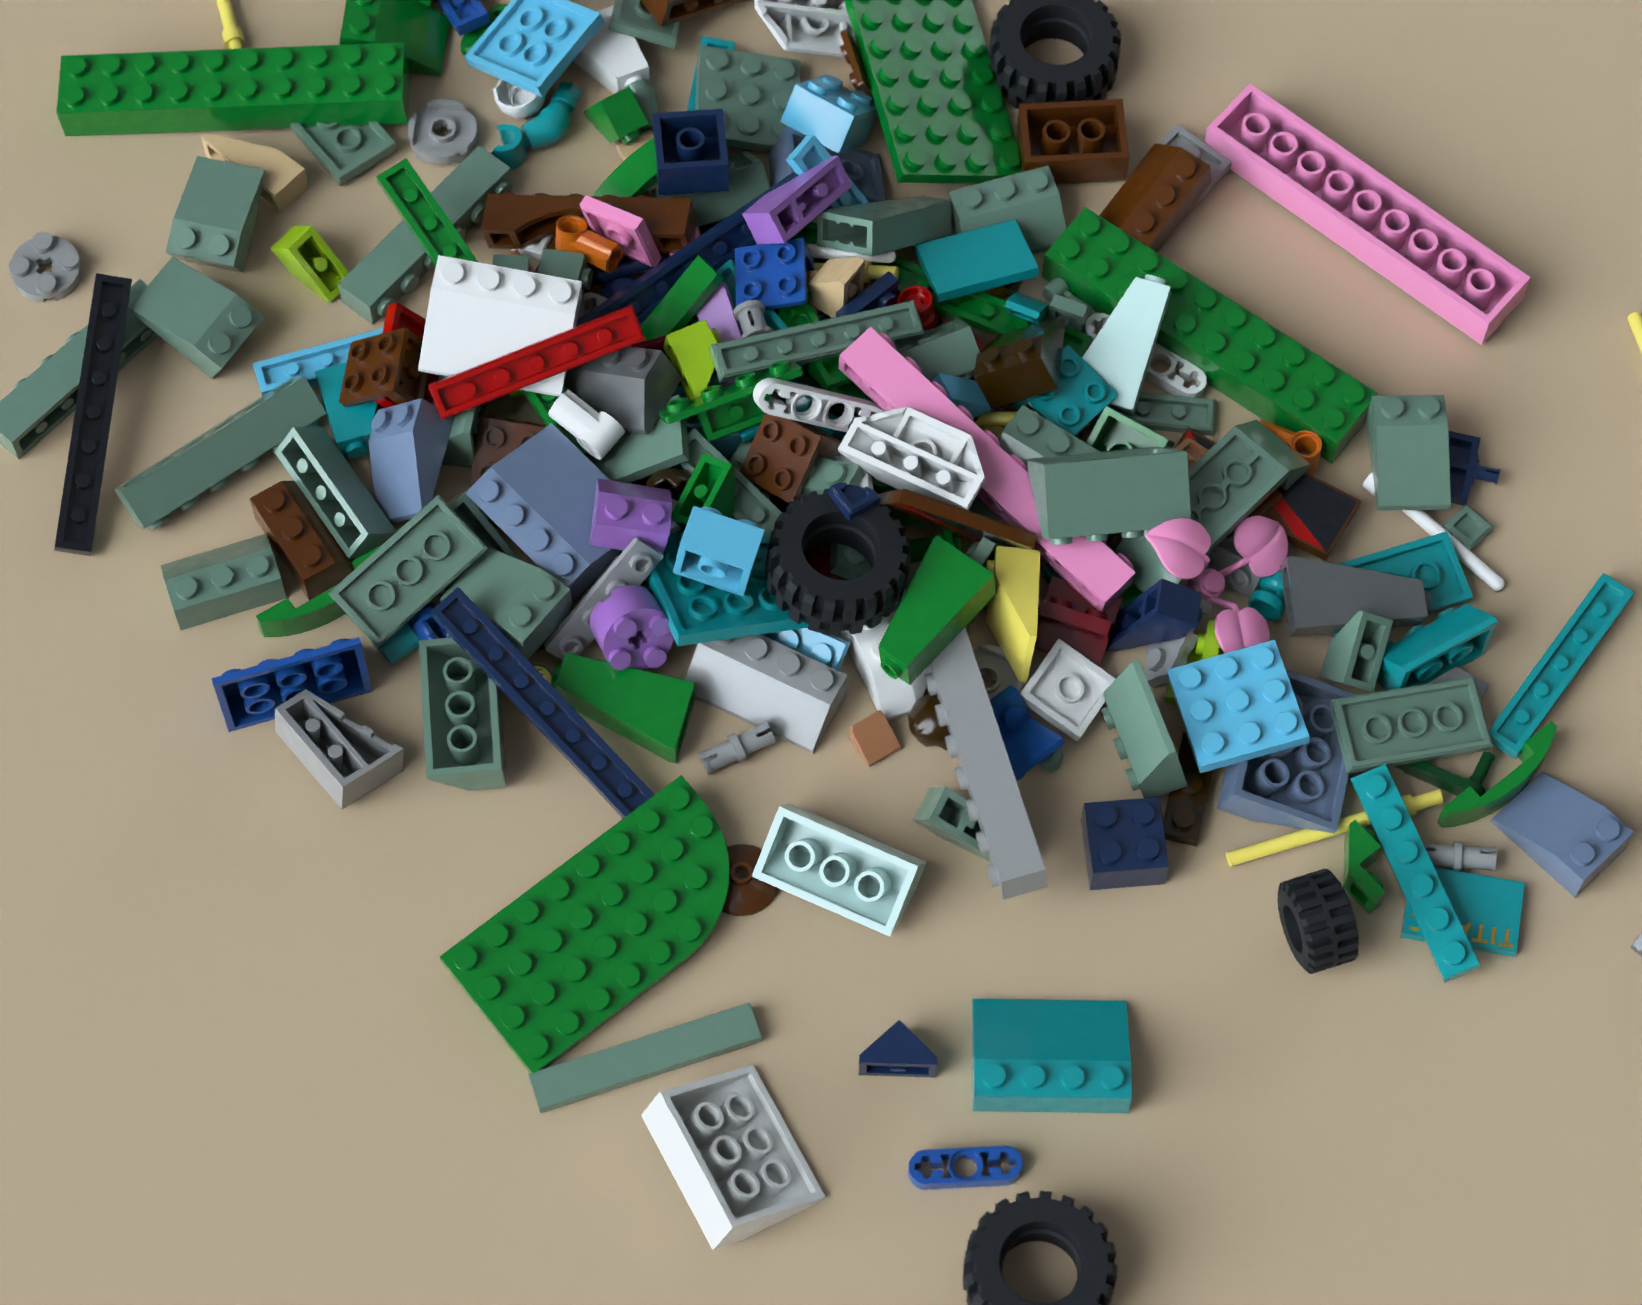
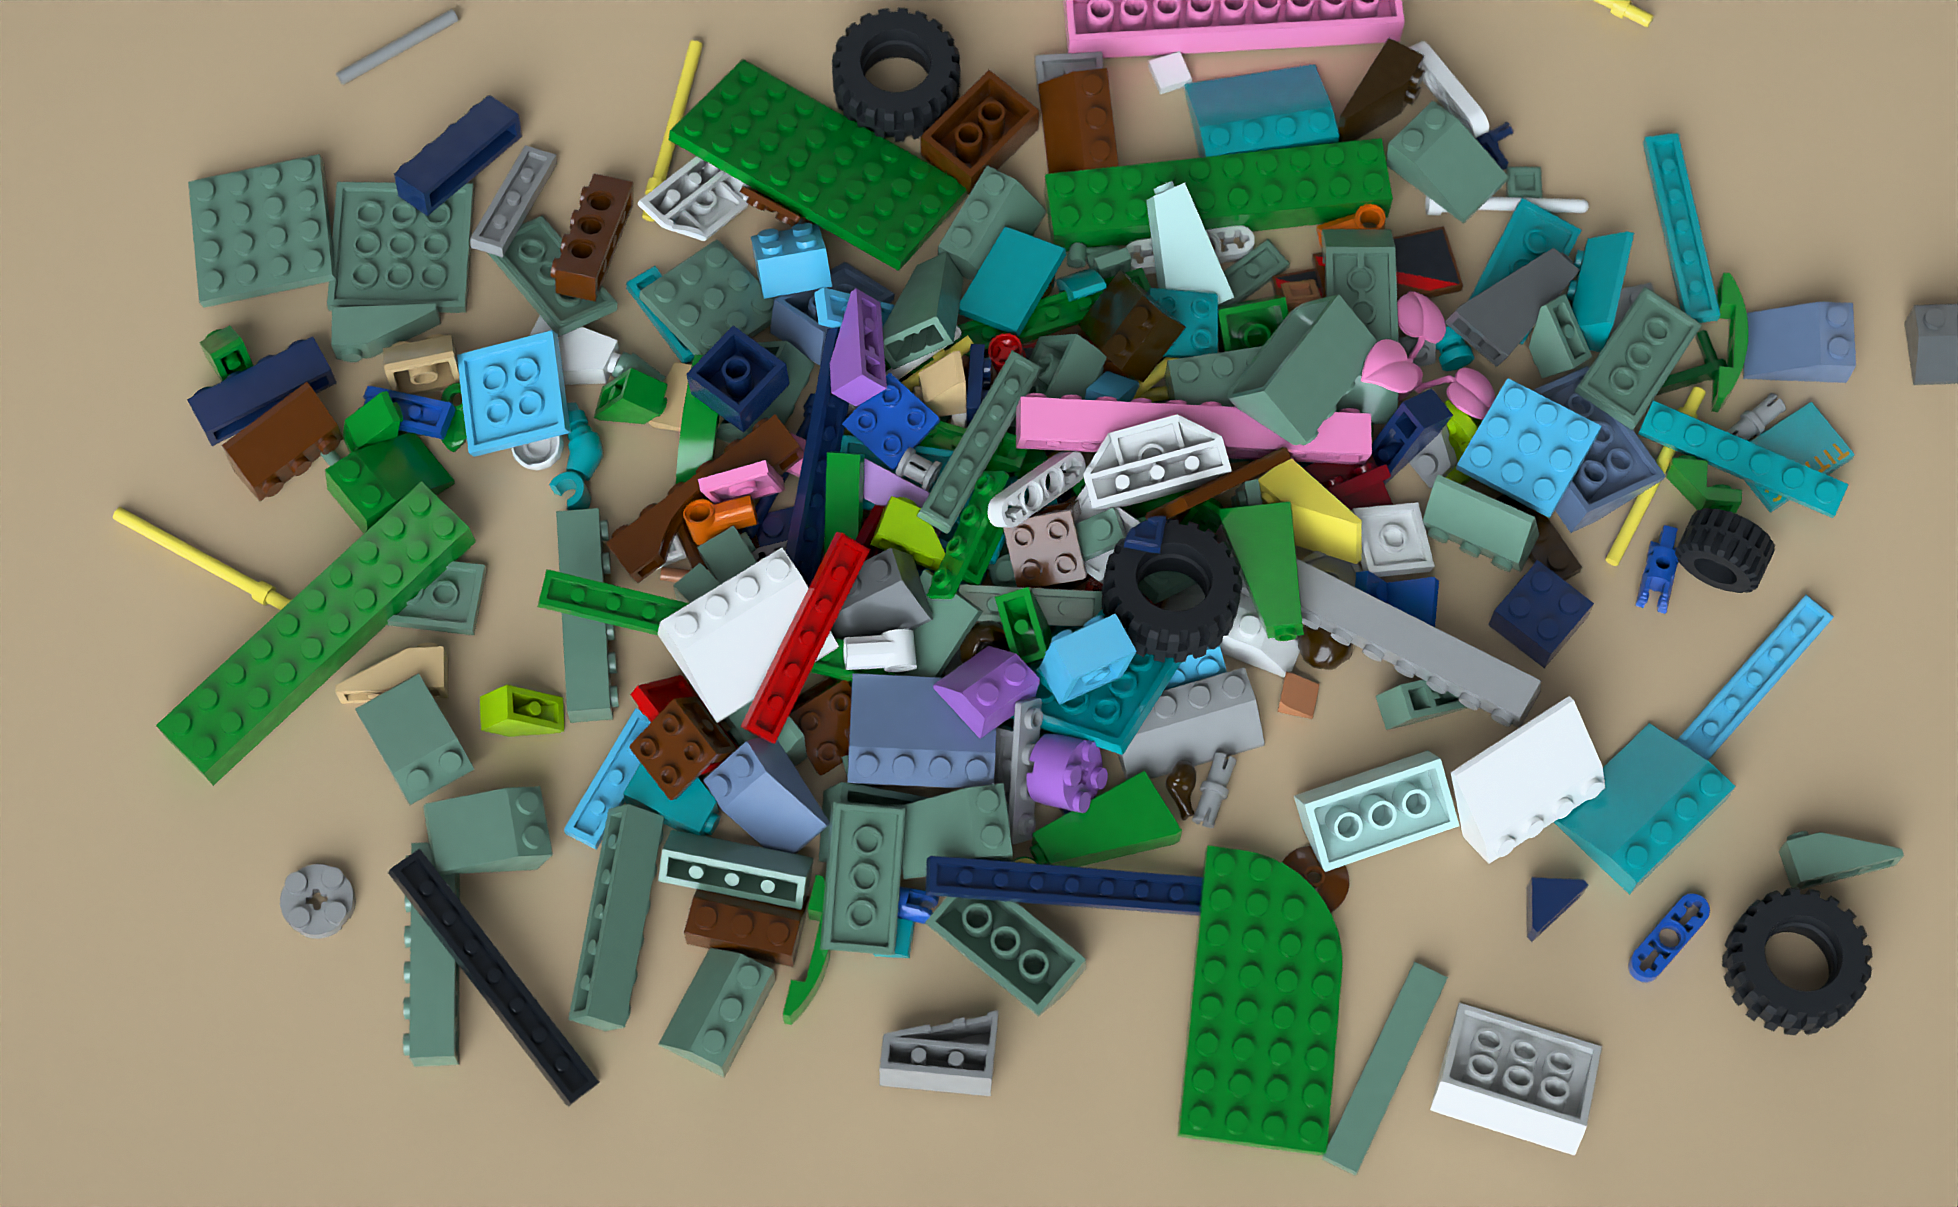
camera: 45 degrees left, 5 degrees up
(328, 672) = (859, 1035): blue slope -> none
(444, 149) = (510, 506): light grey plate -> none
(715, 720) = (1181, 785): none -> dark brown animal
(968, 942) = (1527, 781): none -> white slope
(1154, 1225) = (1829, 858): none -> sand green slope
(1245, 1045) = (1755, 678): none -> medium azure tile
(1253, 898) = (1659, 570): none -> blue hinge
(1272, 221) = (1169, 72): none -> white tile
(1310, 304) = (1261, 112): none -> teal slope
(1413, 361) = (1383, 92): none -> dark brown slope
(1474, 405) = (1450, 91): none -> white beam

